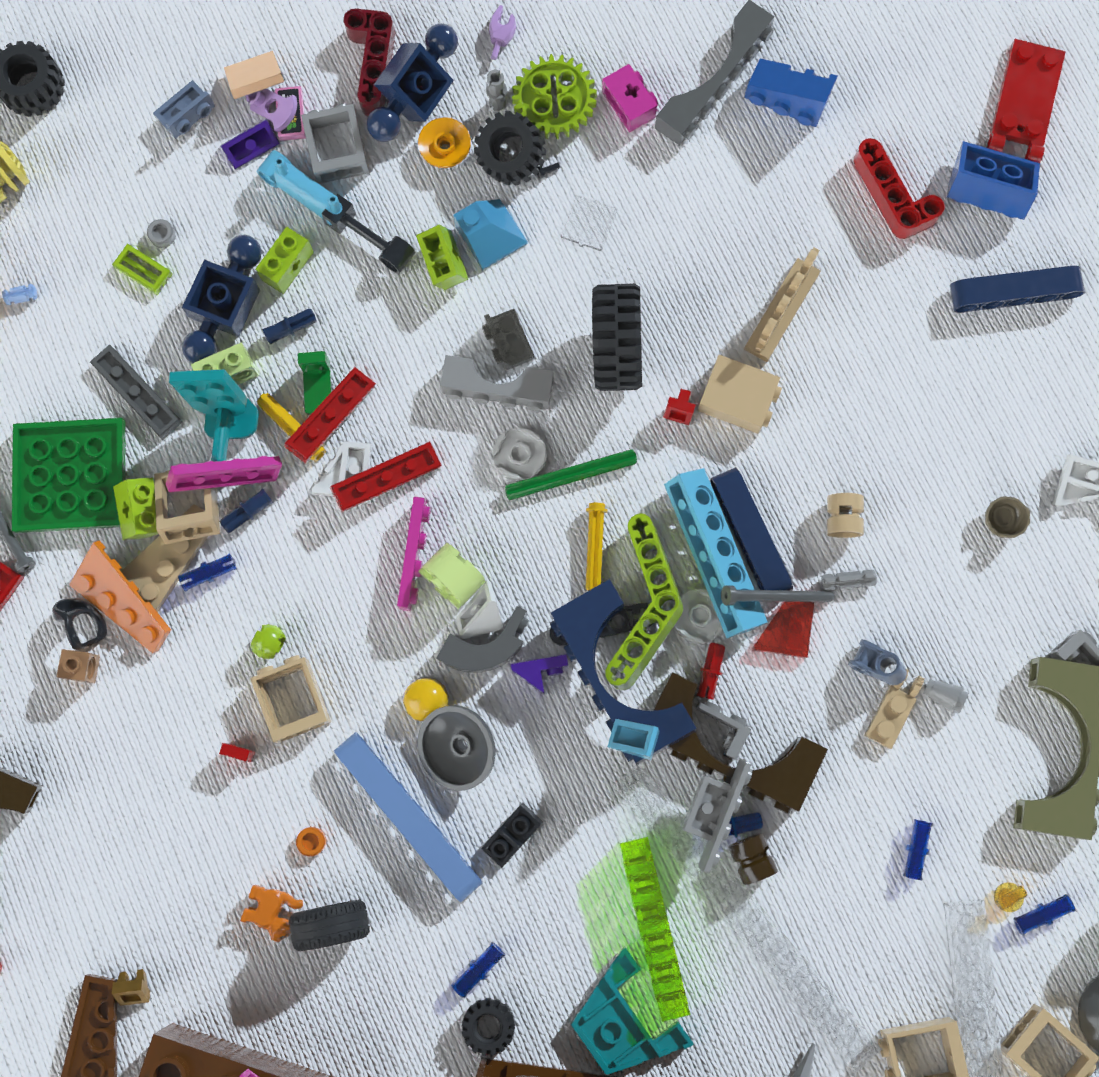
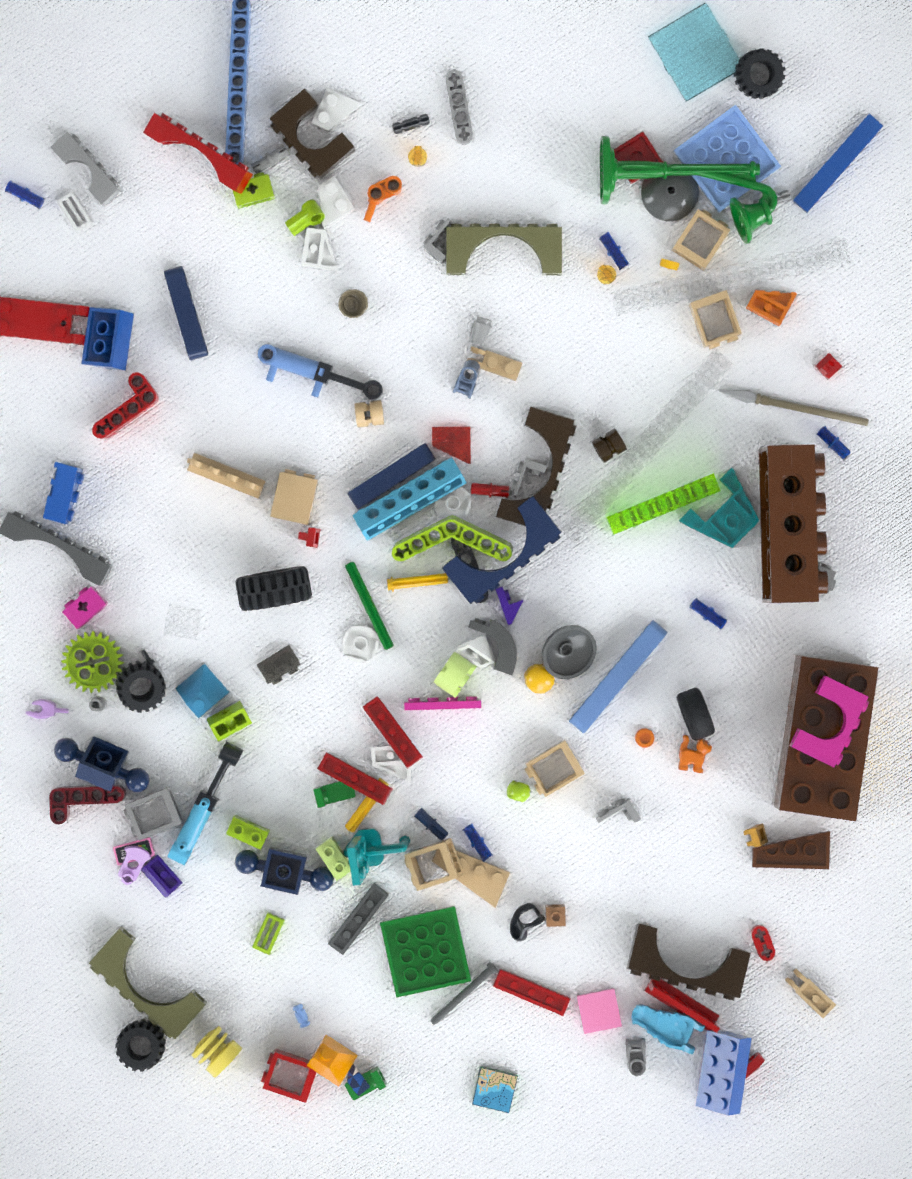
camera: 100 degrees left, 10 degrees up
(59, 120) = (112, 965): none -> olive arch
(109, 591) = (503, 902): orange wing -> none
(136, 508) = (442, 897): lime brick -> none
(161, 233) = (239, 925): light grey tile -> none
(184, 109) = (144, 927): sand blue bracket -> none
(204, 801) = (630, 811): none -> light grey bracket
(223, 473) = (411, 842): dark pink plate -> none
(237, 752) = (595, 795): red tile -> none
(253, 74) = (111, 881): light nougat tile -> none
(289, 326) = (294, 820): dark blue axle -> none
(441, 132) = (133, 741): light orange dish -> none
(488, 1045) = (734, 592): black tyre -> none
(512, 835) = (619, 605): black slope -> none
(530, 389) = (313, 642): light grey arch -> none
(634, 738) = (546, 536): medium azure slope -> none
(712, 811) = (583, 477): light grey bracket -> none
(730, 595) = (439, 486): dark grey bar -> none
(745, 823) = (589, 460): clear blue axle -> none
(848, 580) = (412, 405): light grey axle -> none
(916, 450) = (311, 369): none -> medium blue piece
(917, 849) = (585, 337): clear blue pin -> none
(1015, 997) = (669, 264): none -> yellow tile

